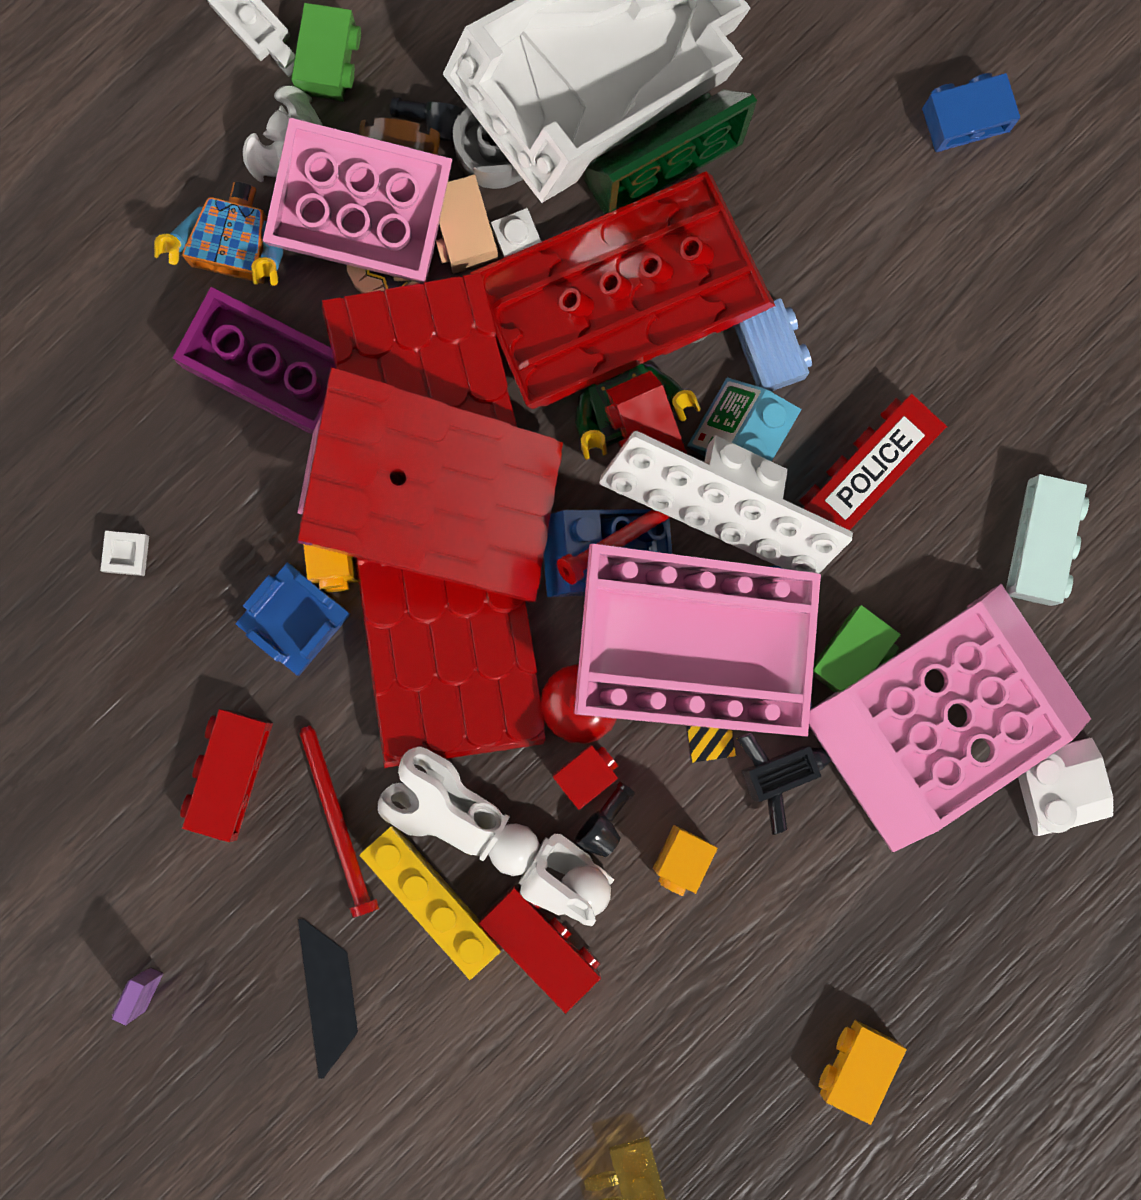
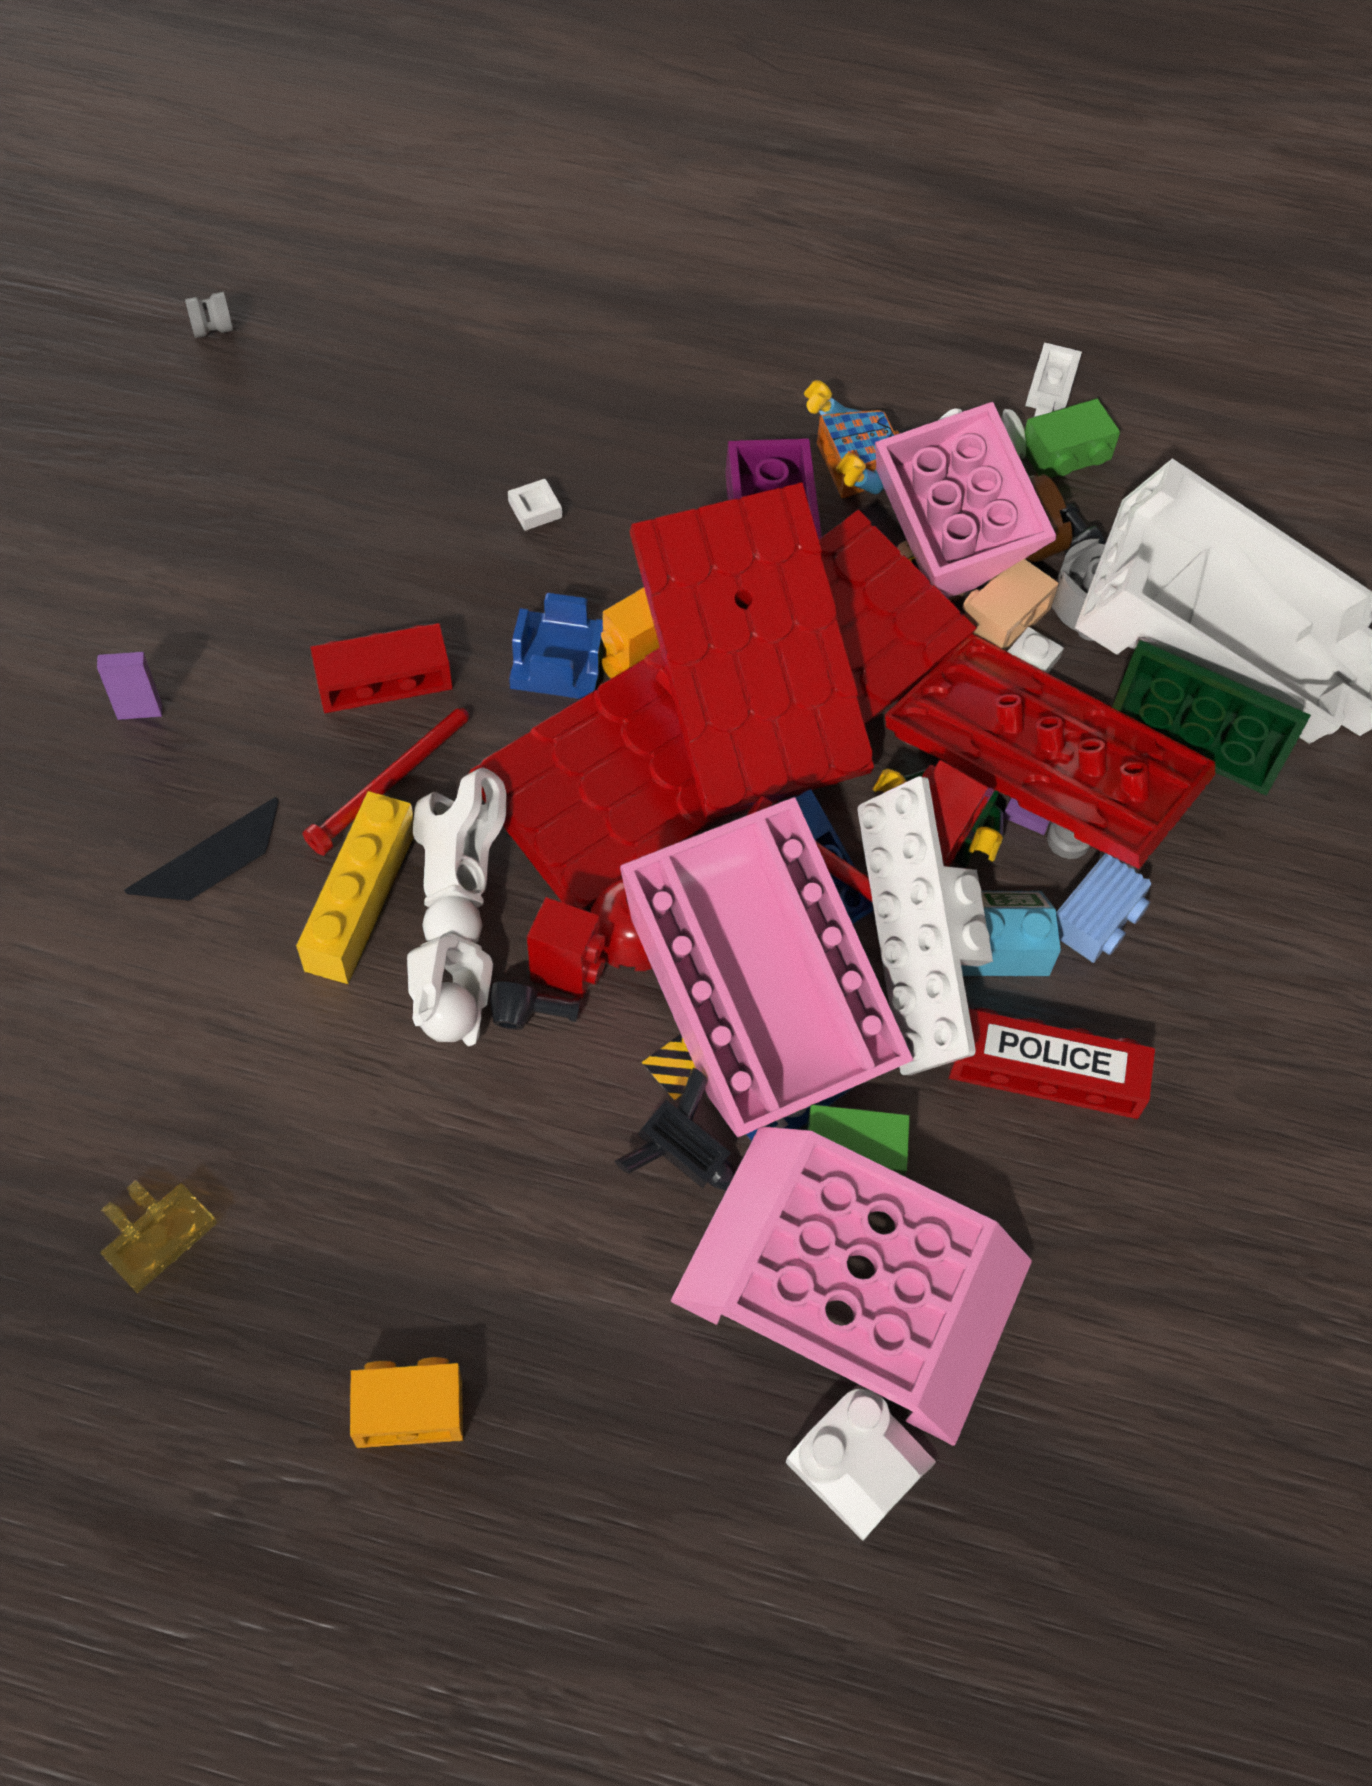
camera: 65 degrees right, 25 degrees down
(542, 949) = (363, 1011): red brick -> none
(683, 861) = (533, 1082): light orange brick -> none
(1047, 540) = (1110, 1280): light aqua brick -> none

